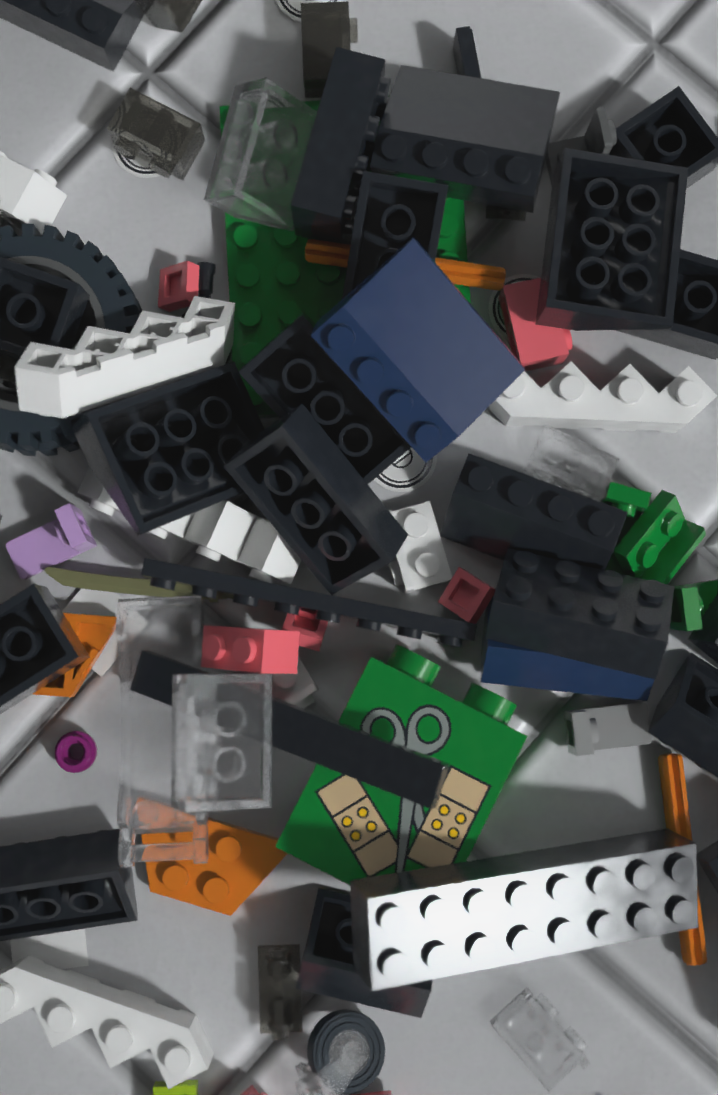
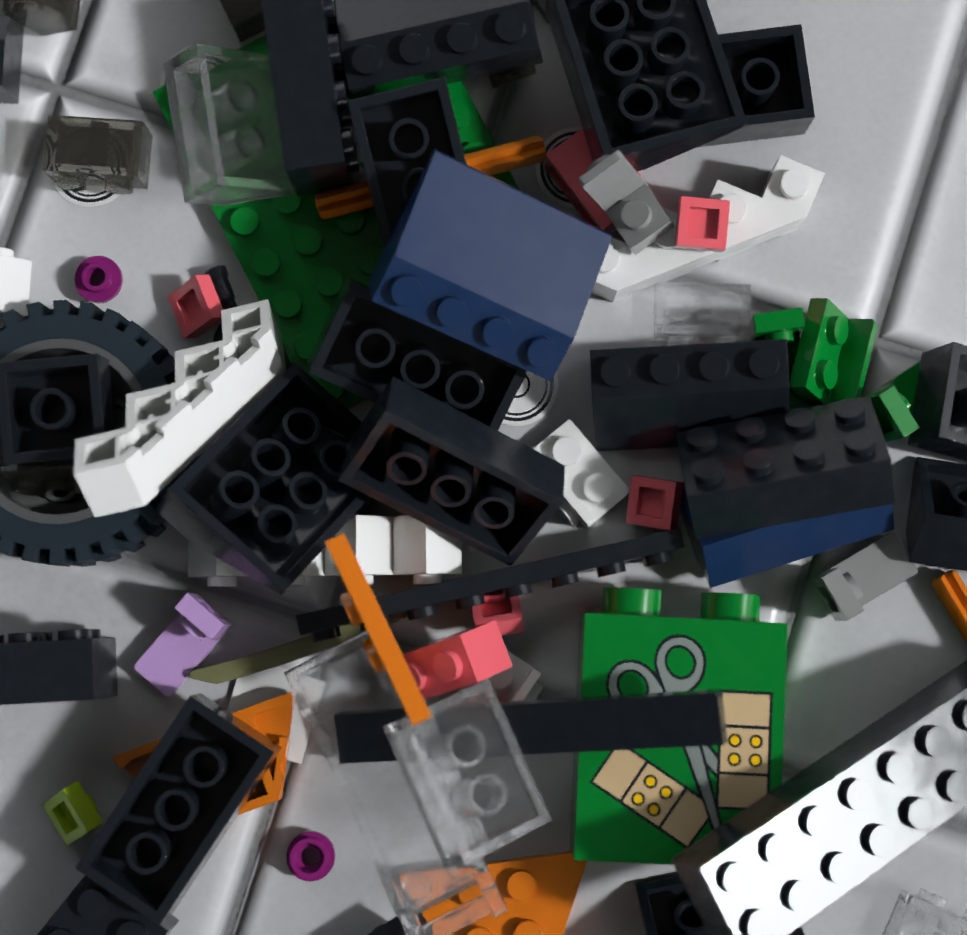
camera: 20 degrees left, 0 degrees up
(121, 240) = (108, 289): none -> magenta plate
(199, 610) = (381, 644): none -> orange wing
(549, 346) = (626, 200): none -> light grey bracket
(601, 392) = (702, 224): none -> coral plate

